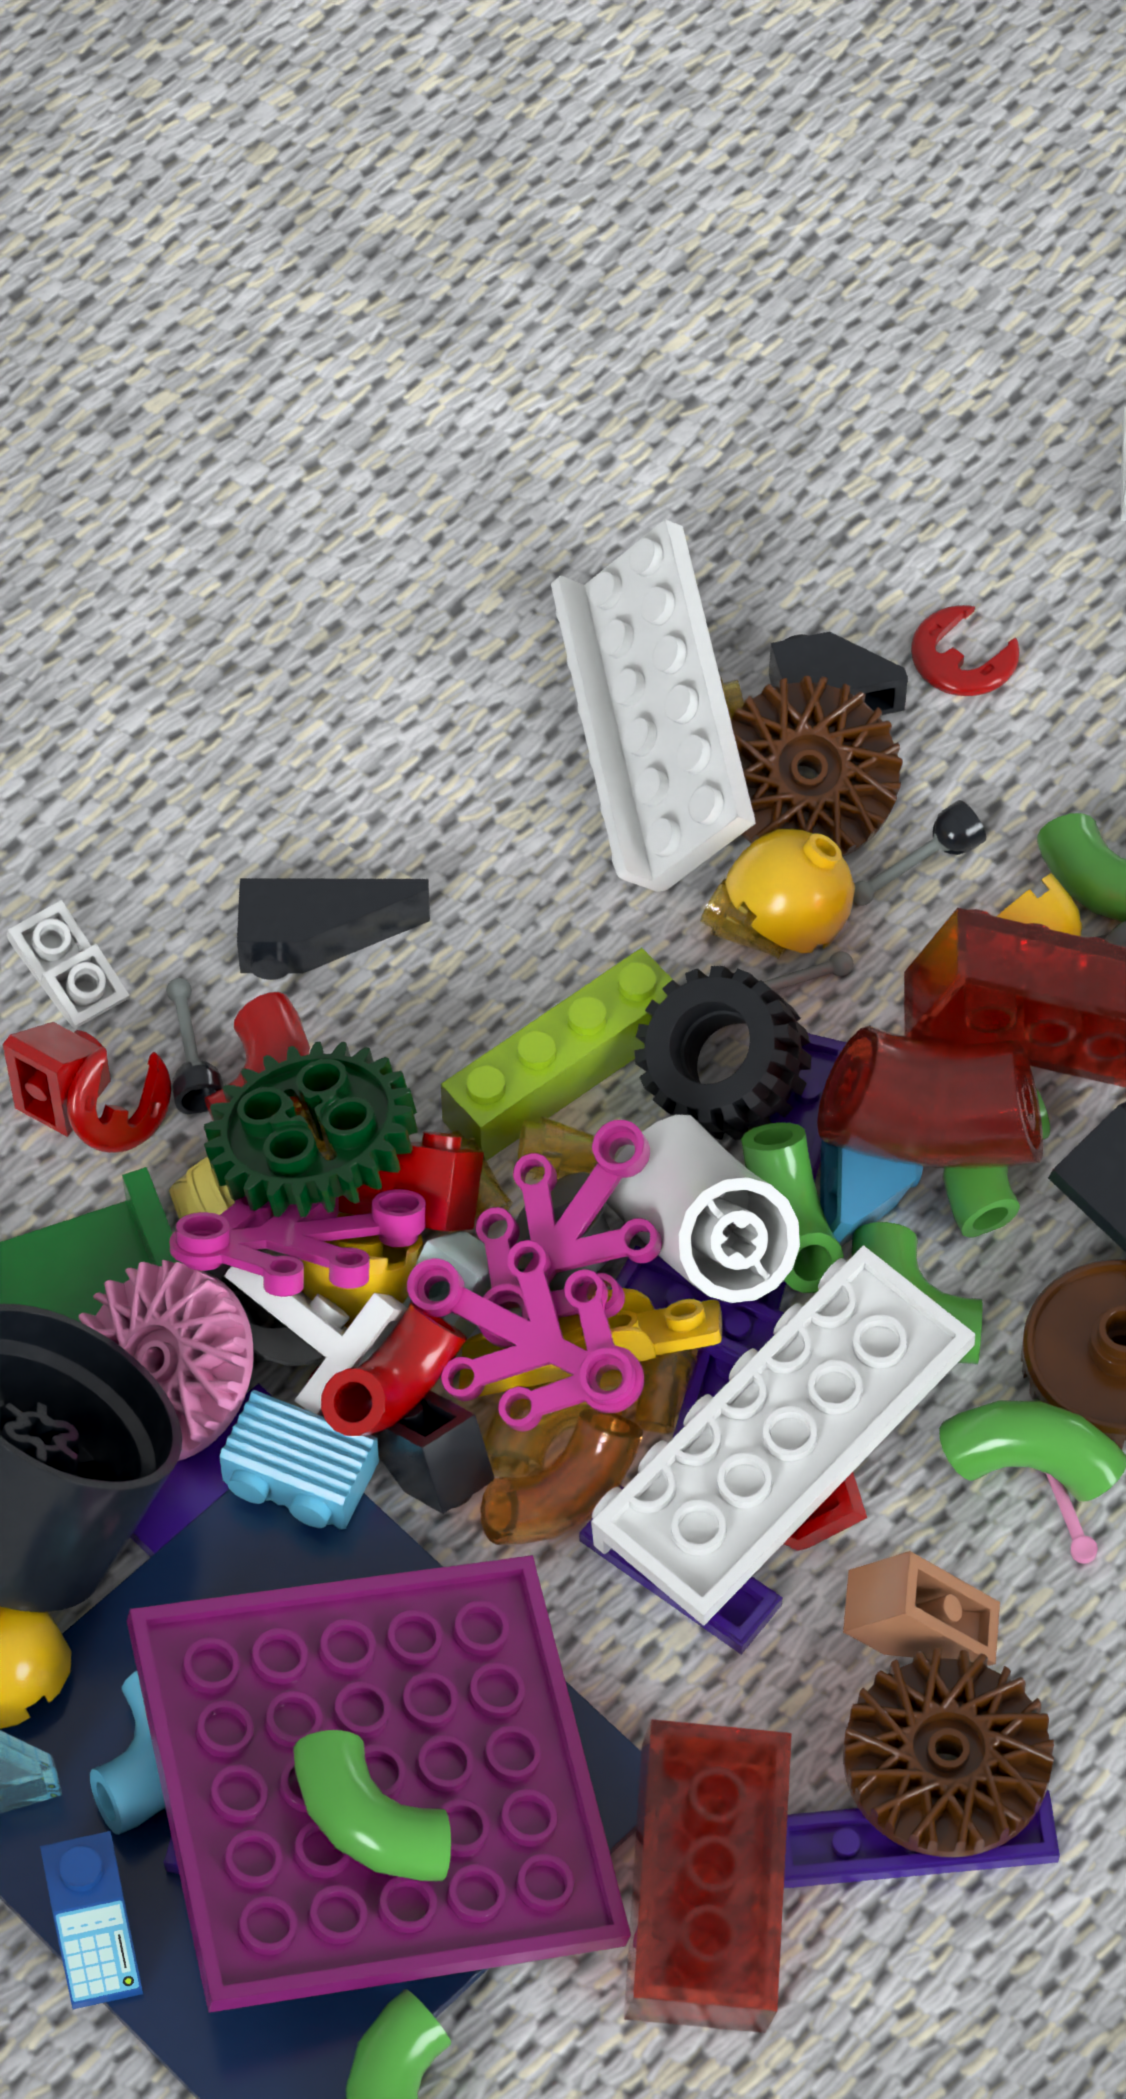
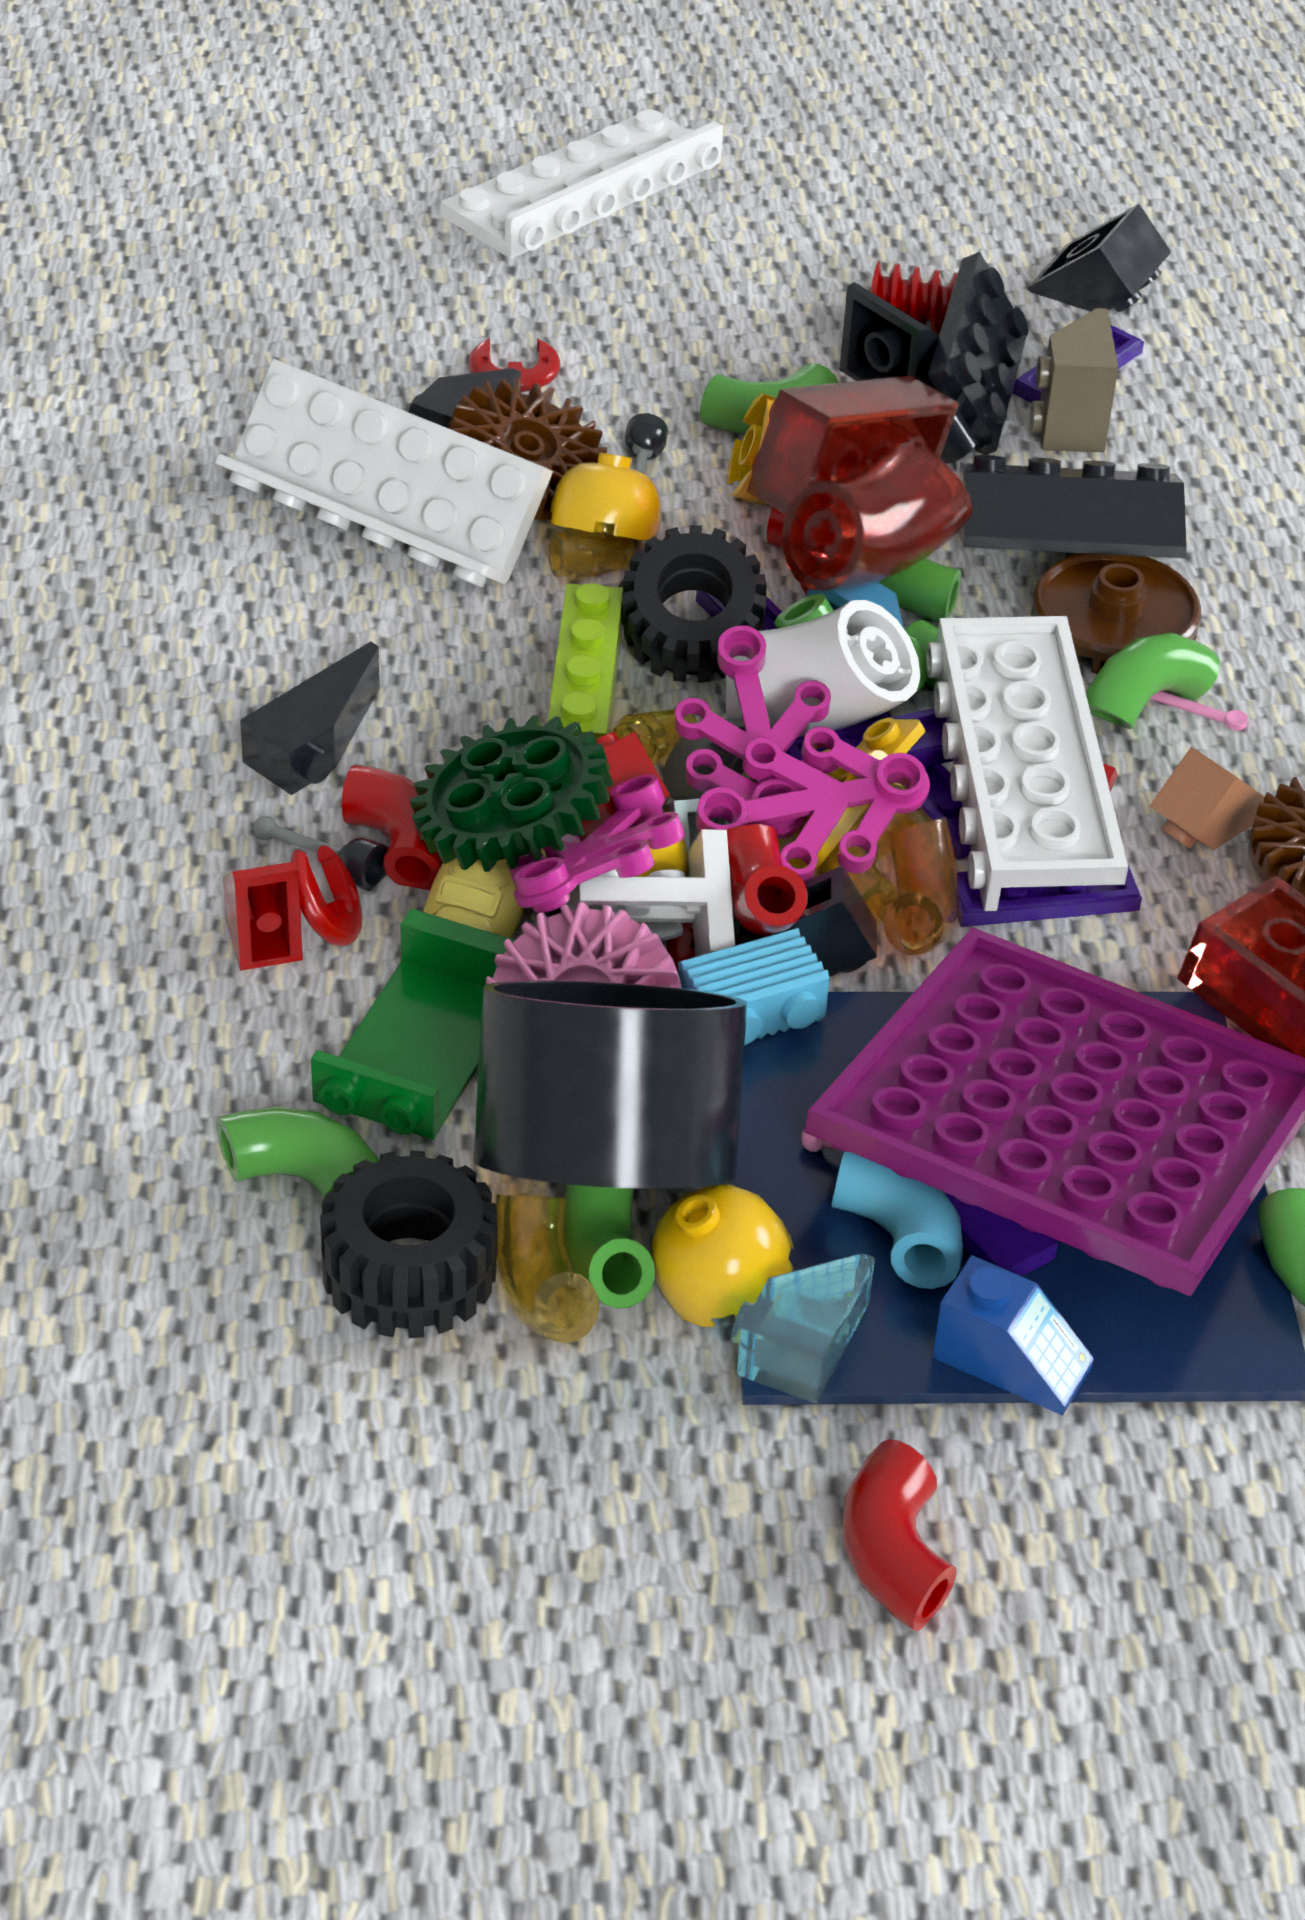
camera: 50 degrees left, 15 degrees down
(67, 965) = (186, 869): white slope -> none
(363, 1819) = (1126, 1097): bright green cylinder -> none

